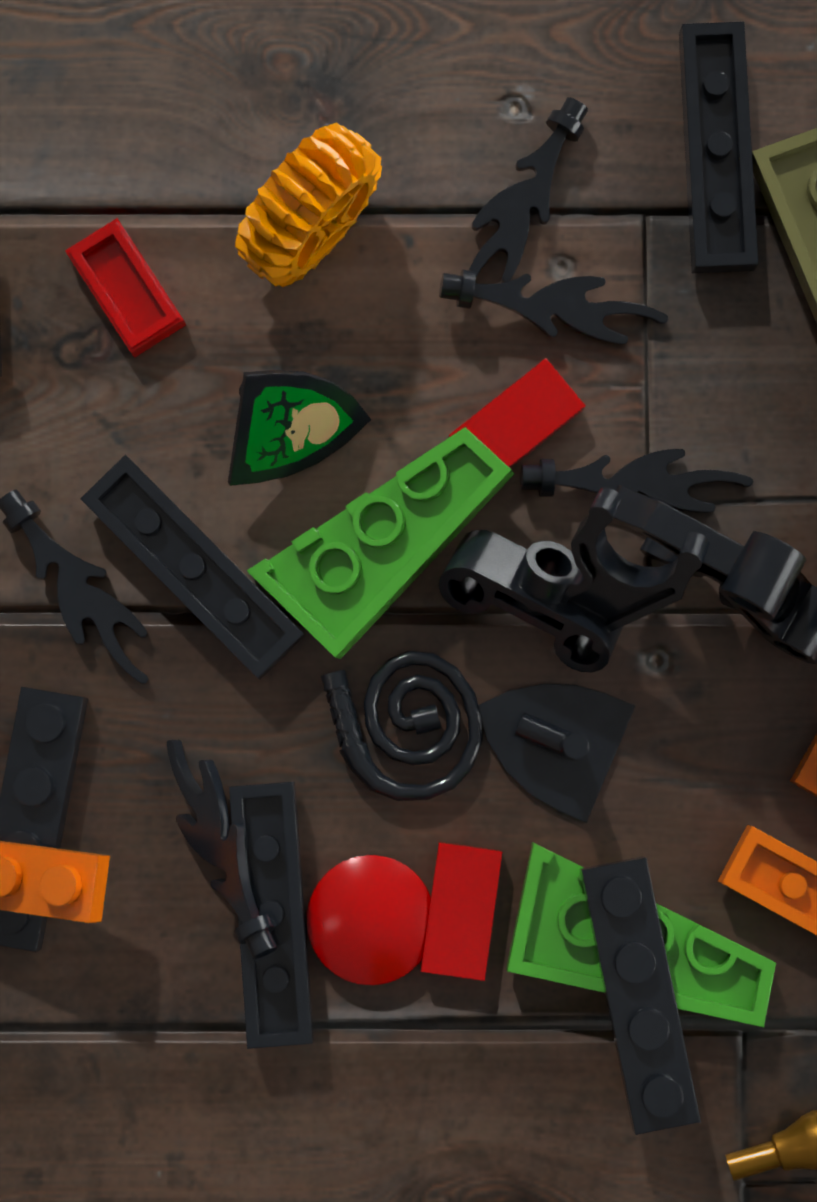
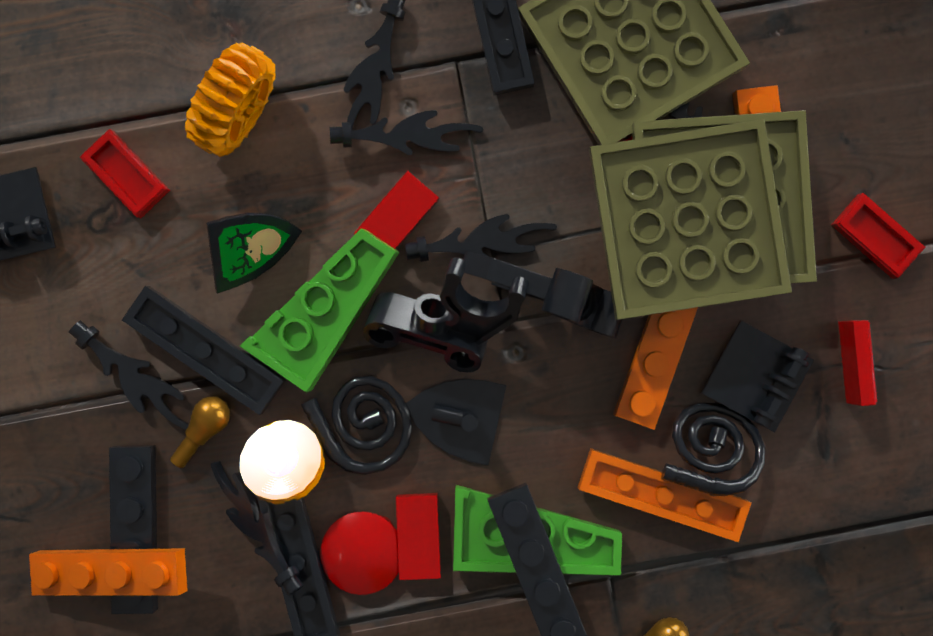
camera: 15 degrees left, 5 degrees up
(177, 672) = (207, 420): none -> pearl gold piece
(279, 755) = (282, 461): none -> tile

